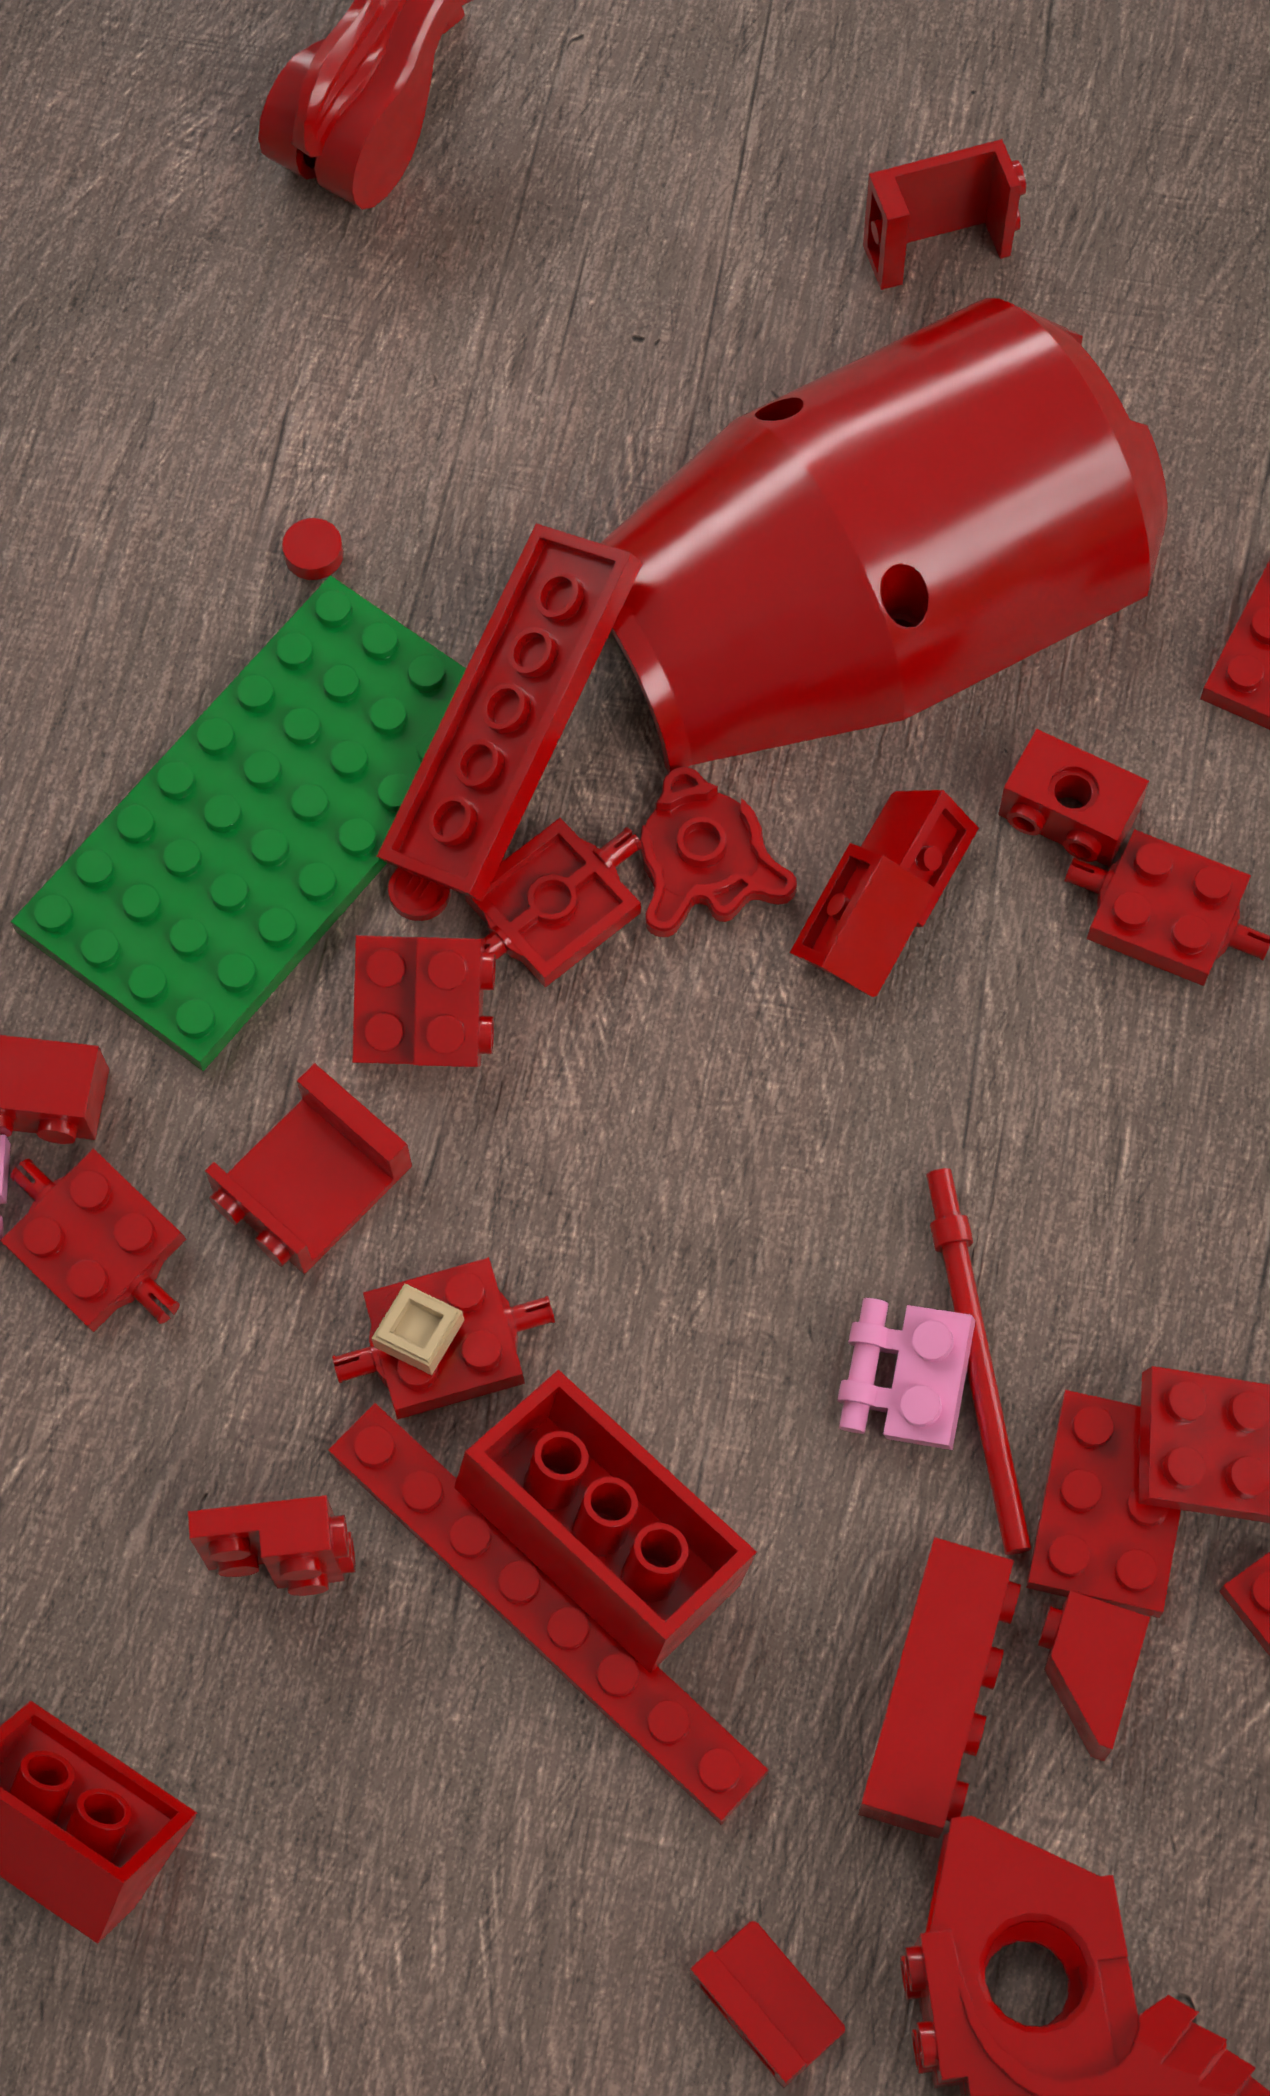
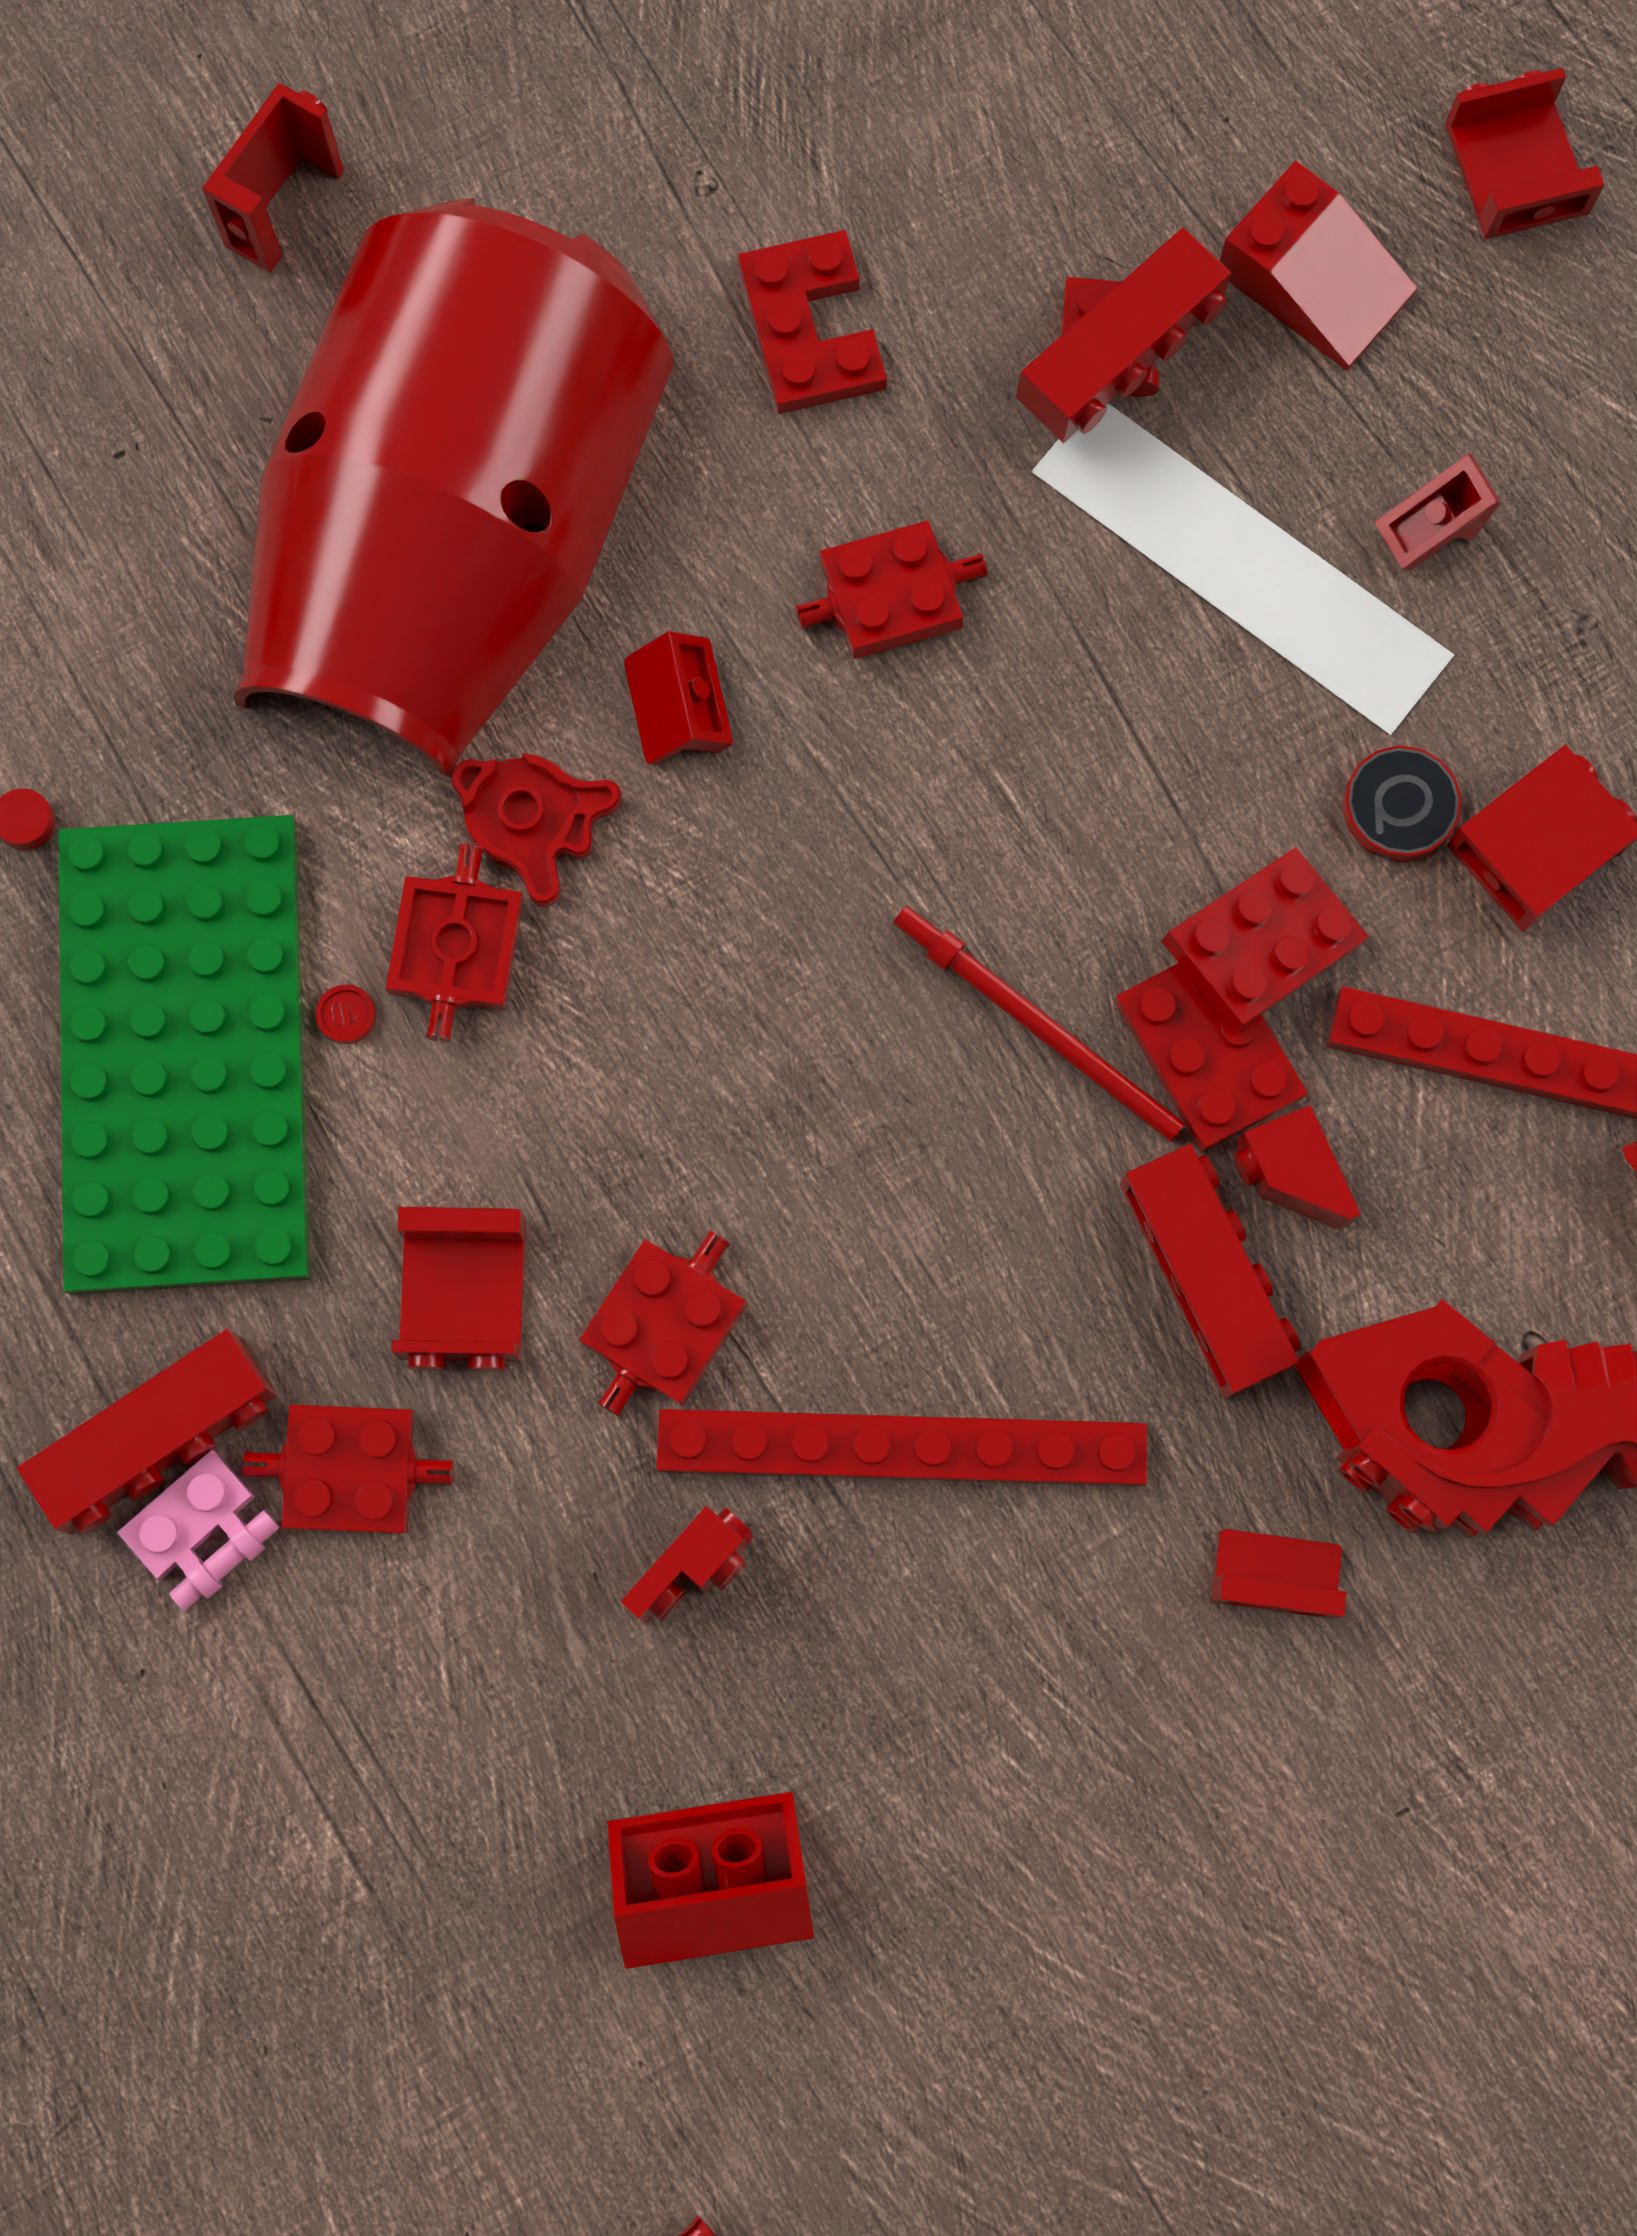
camera: 45 degrees left, 10 degrees up
(418, 1329) = (647, 1332): tan tile -> none
(422, 1001) = (431, 1094): red plate -> none
(509, 710) = (305, 825): red plate -> none
(604, 1519) = (897, 1353): red brick -> none
(863, 919) = (690, 774): red panel -> none
(927, 1374) = (1017, 1062): bright pink plate -> none
(1059, 770) = (779, 539): red brick -> none

